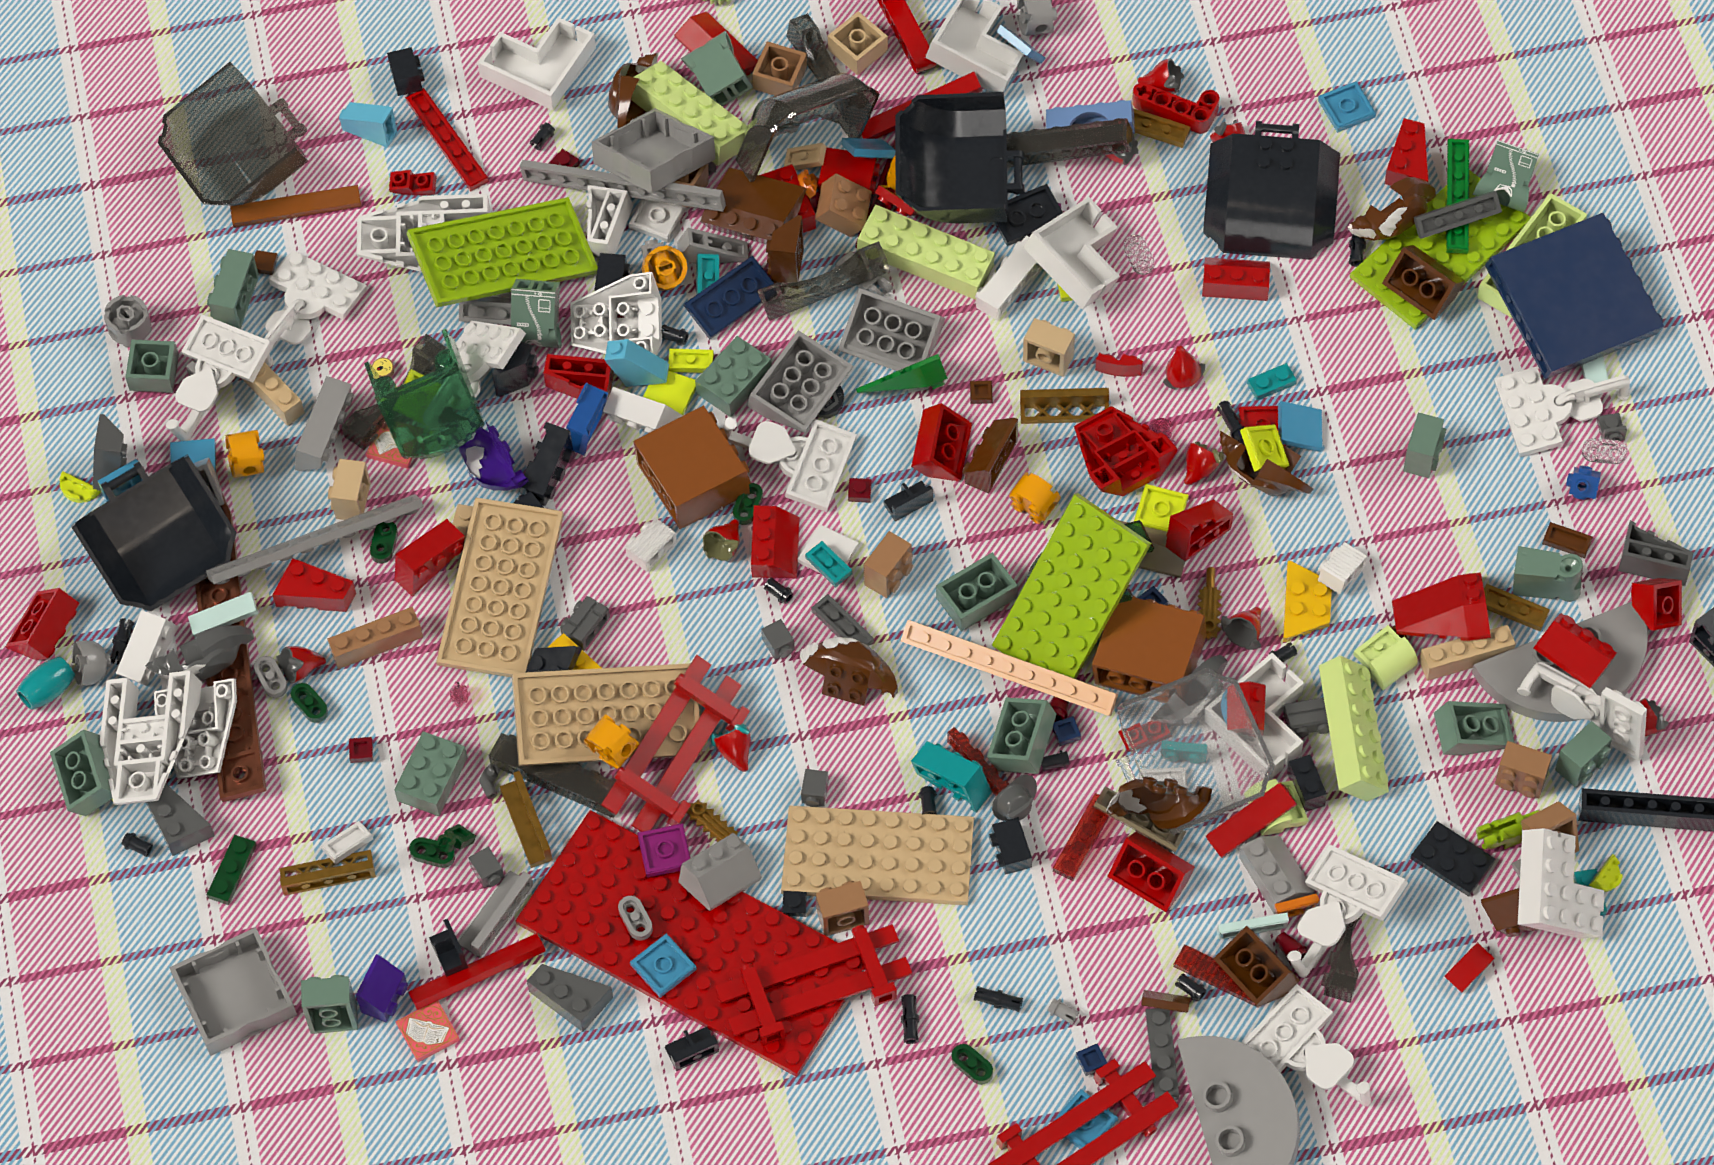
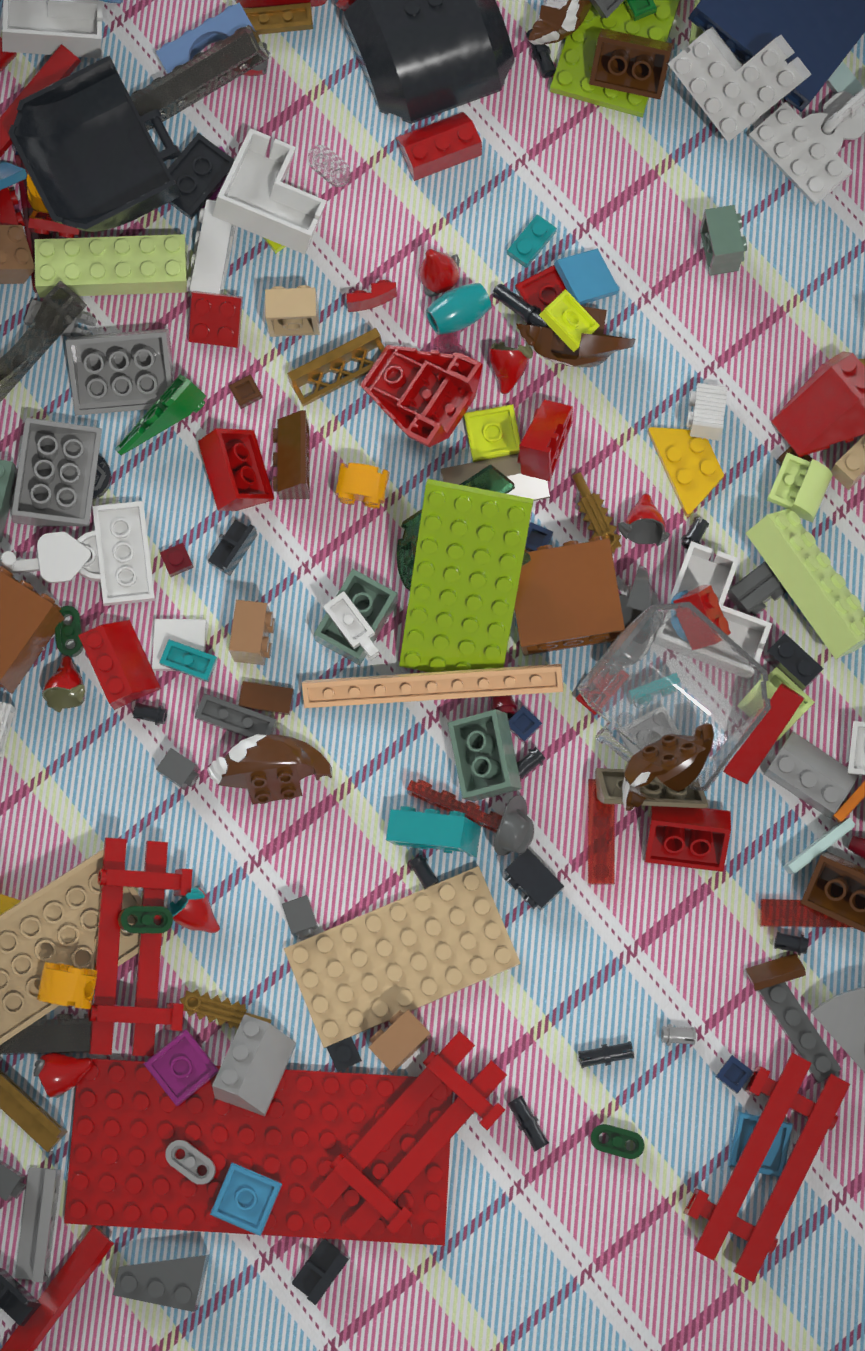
camera: 25 degrees left, 15 degrees up
(571, 810) = (60, 1072): none -> red hat
(695, 726) = (144, 919): none -> dark green plate
(875, 621) = (266, 698): none -> reddish brown tile
(969, 589) = (351, 624): none -> white plate
(986, 327) = (215, 319): none -> red plate
(1183, 403) = (458, 308): none -> teal piece
(1494, 337) = (736, 93): none -> white piece

